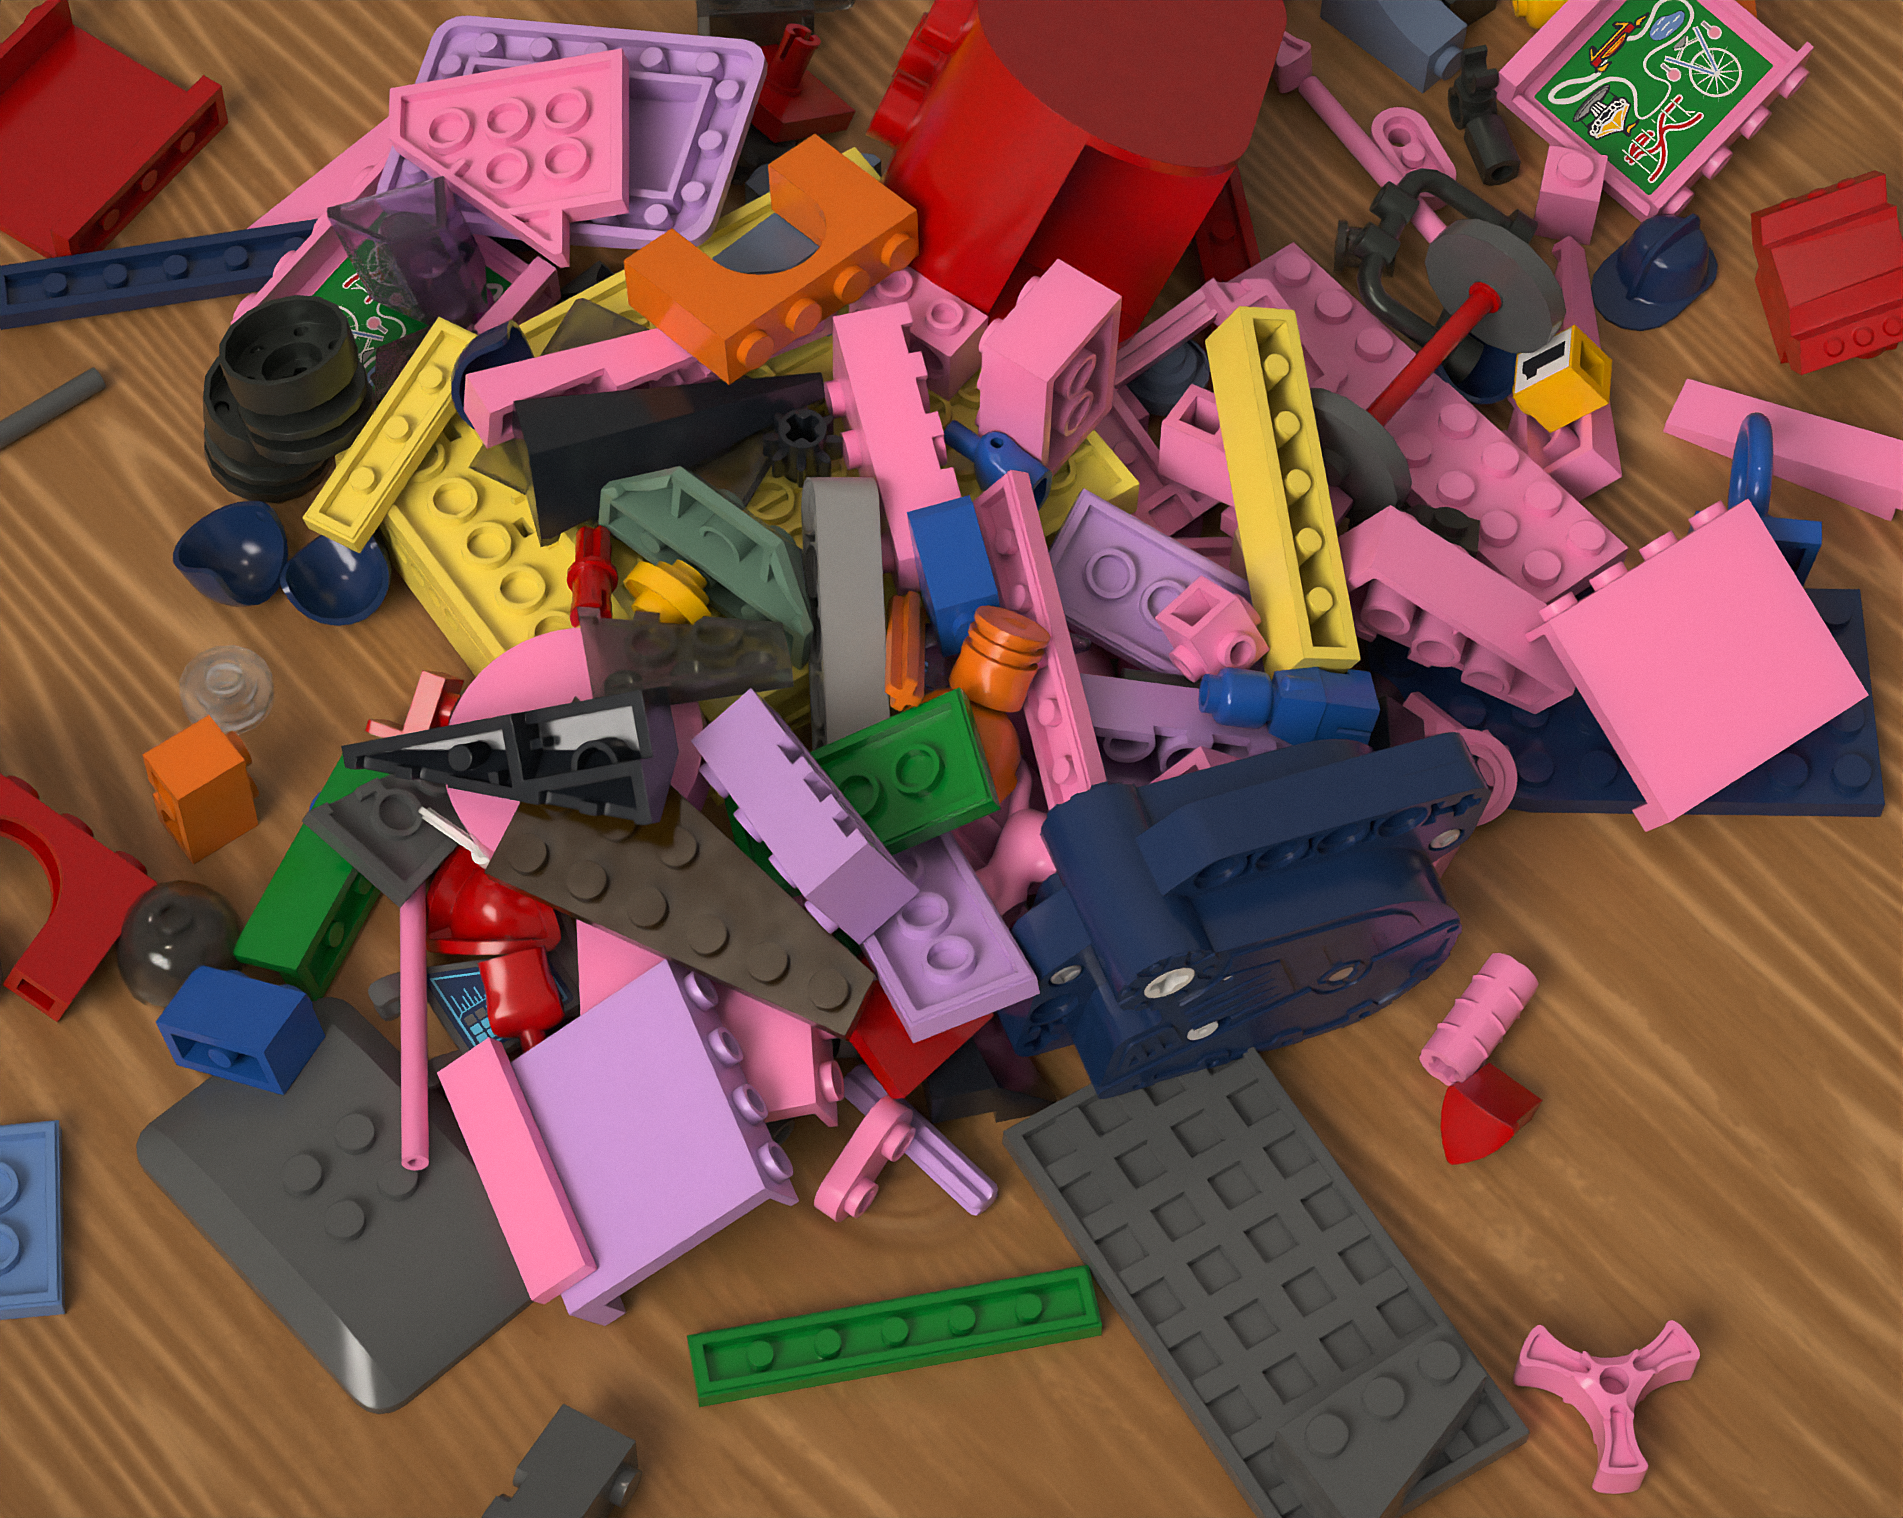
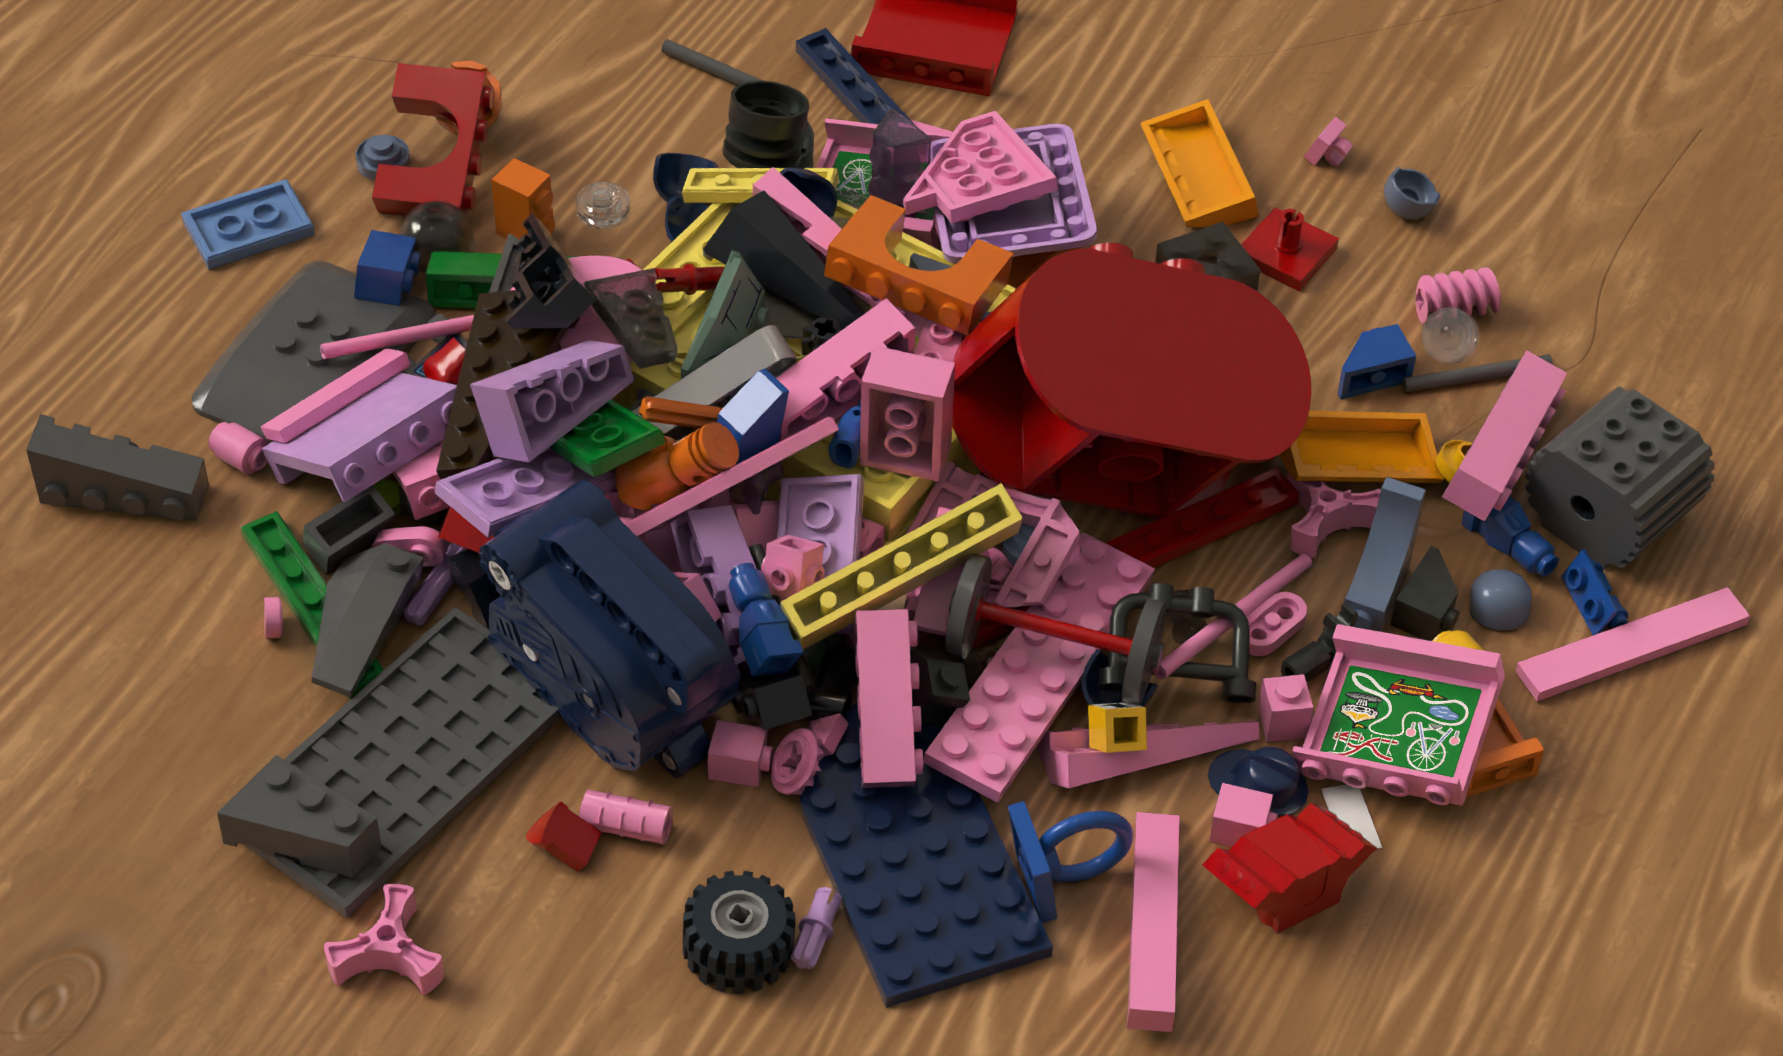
camera: 70 degrees right, 10 degrees down
(531, 1354) = (238, 447): none -> bright pink brick
(669, 590) = (685, 309): yellow plate -> none
(803, 1247) = (347, 528): none -> dark grey piece
(917, 1395) = (273, 617): none -> bright pink tile
(958, 1248) = (361, 613): none -> dark grey wedge
(1700, 659) = (907, 831): bright pink panel -> none
(1726, 310) = (1238, 813): none -> bright pink brick
(1734, 199) = (1351, 808): none -> white sticker
(1735, 938) = (738, 931): none -> black wheel
(1743, 850) = (815, 928): none -> lavender axle

